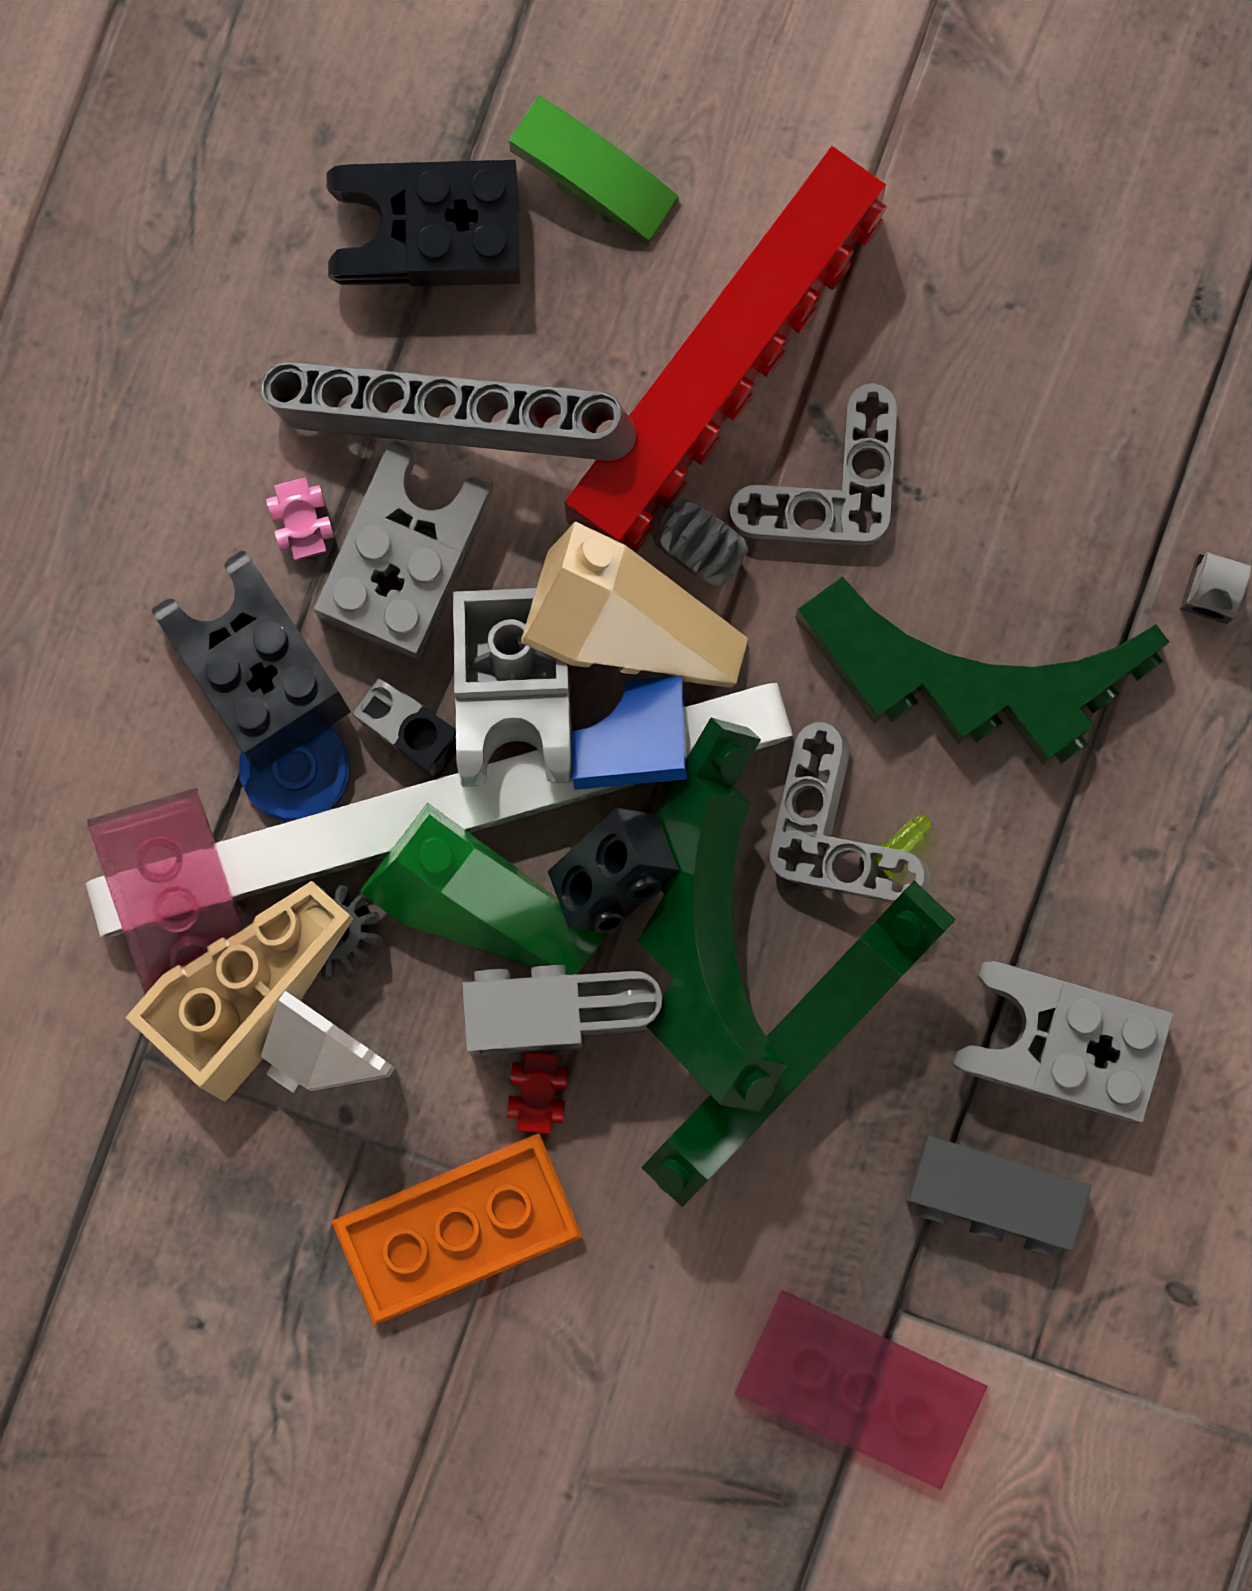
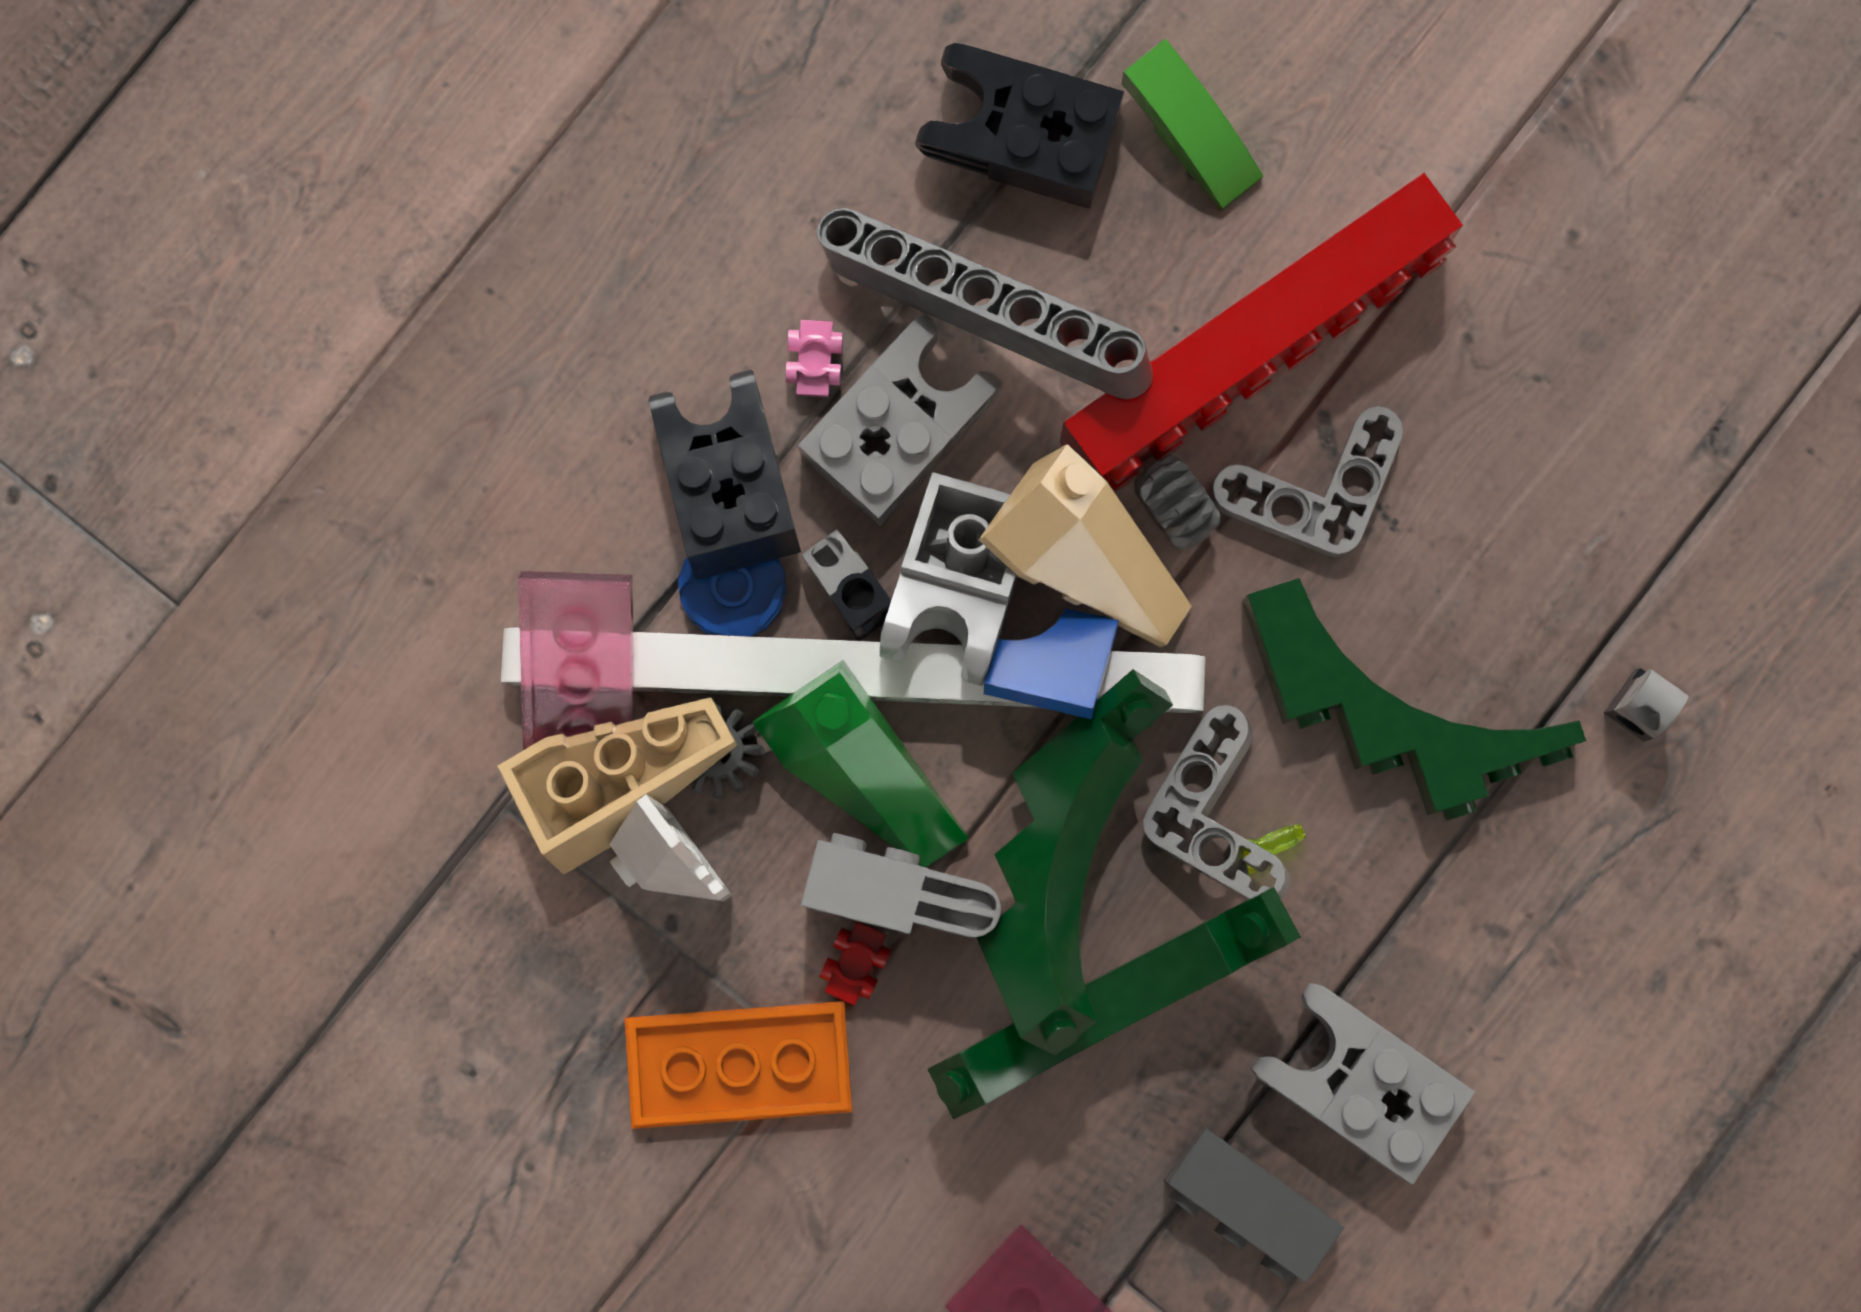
camera: 20 degrees right, 0 degrees up
(613, 871) = (994, 781): black brick -> none

